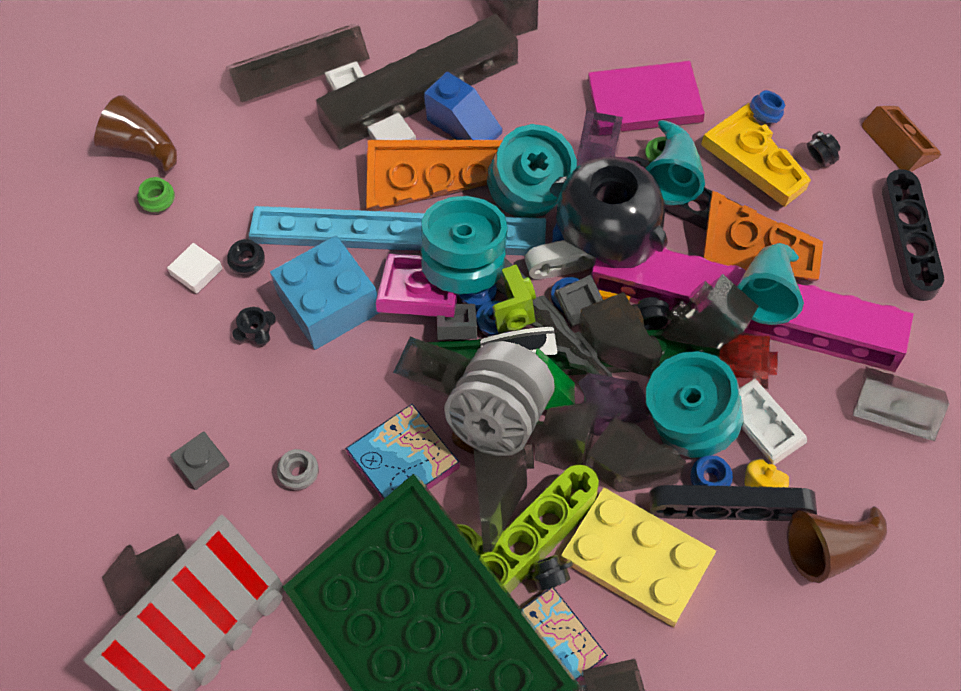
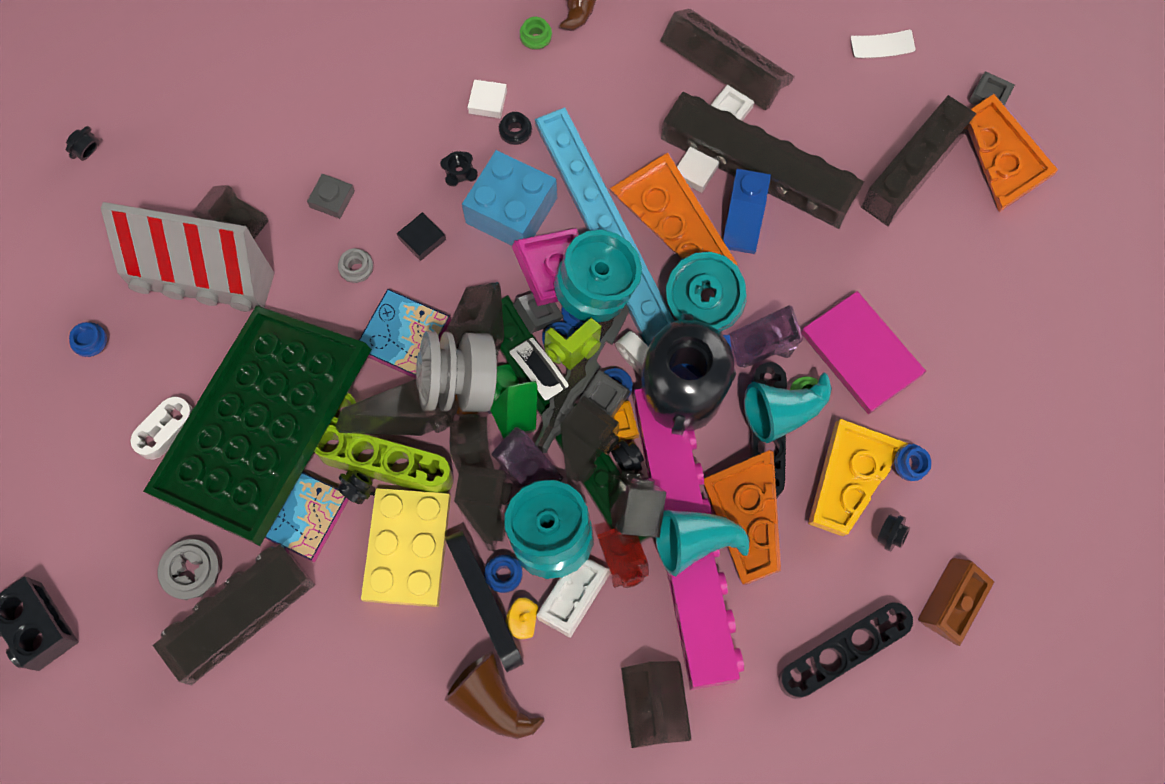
camera: 60 degrees right, 10 degrees up
(305, 393) = (421, 236): none -> black tile

